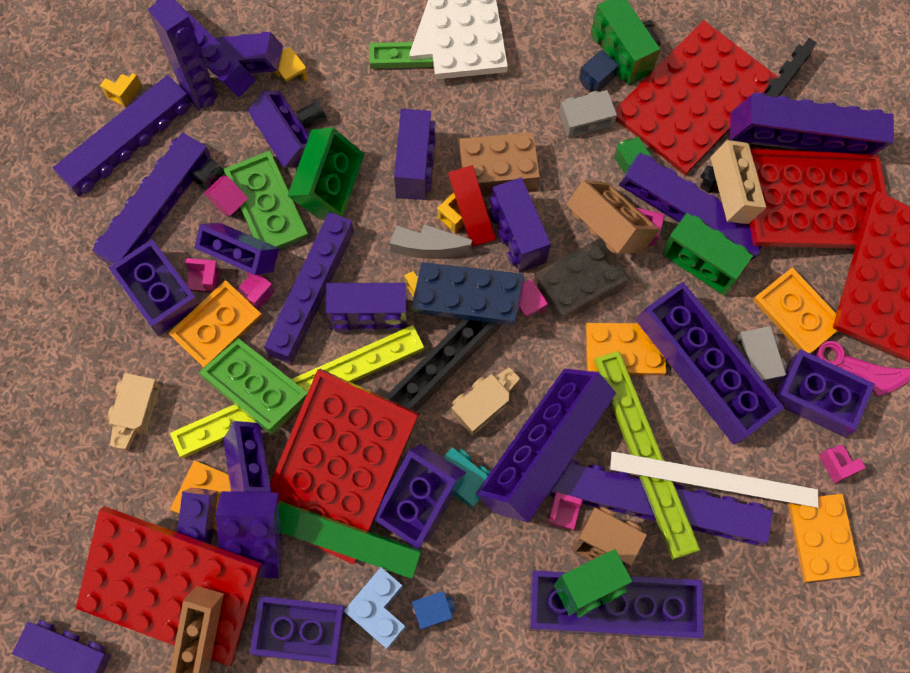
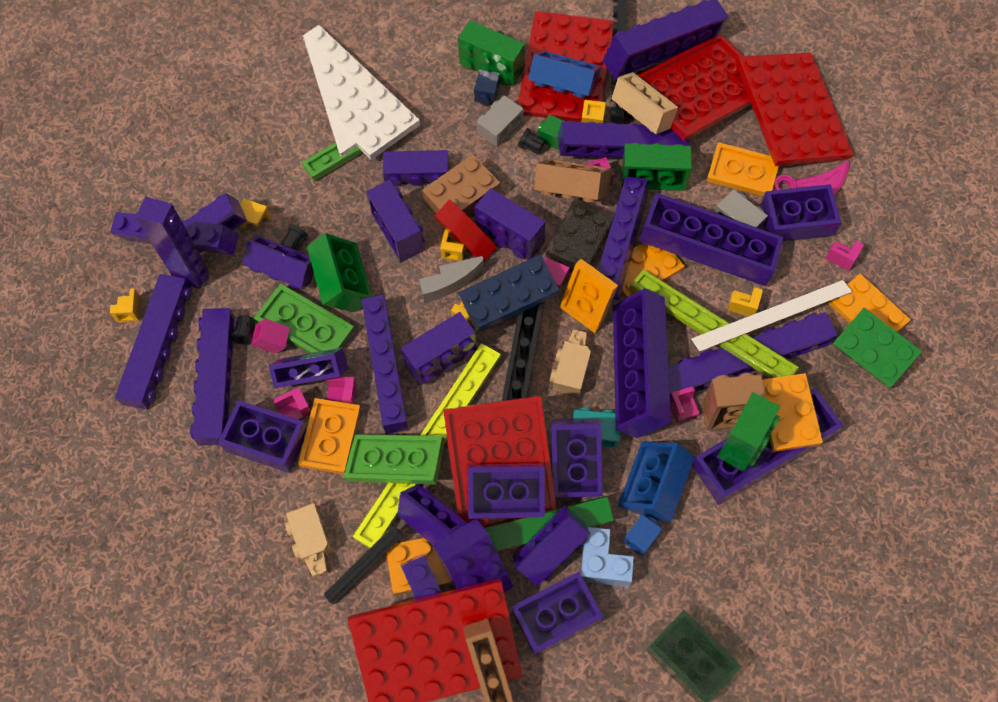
camera: 30 degrees left, 5 degrees down
(161, 465) = (363, 564): none -> black axle
(324, 484) = (506, 490): none -> dark purple brick
(336, 563) = (551, 546): none -> dark purple brick
(472, 111) = (414, 166): none -> dark purple brick
(484, 567) = (657, 480): none -> blue slope
(543, 344) = (588, 295): none -> light orange plate
(603, 153) = (531, 141): none -> black bush
(620, 306) = (624, 231): none -> dark purple brick
(657, 589) = (798, 419): none -> light orange plate
(683, 102) = (564, 73): none -> blue slope
(684, 162) = (593, 111): none -> yellow panel
(700, 448) = (745, 303): none -> yellow panel
(798, 582) = (877, 348): none -> green brick

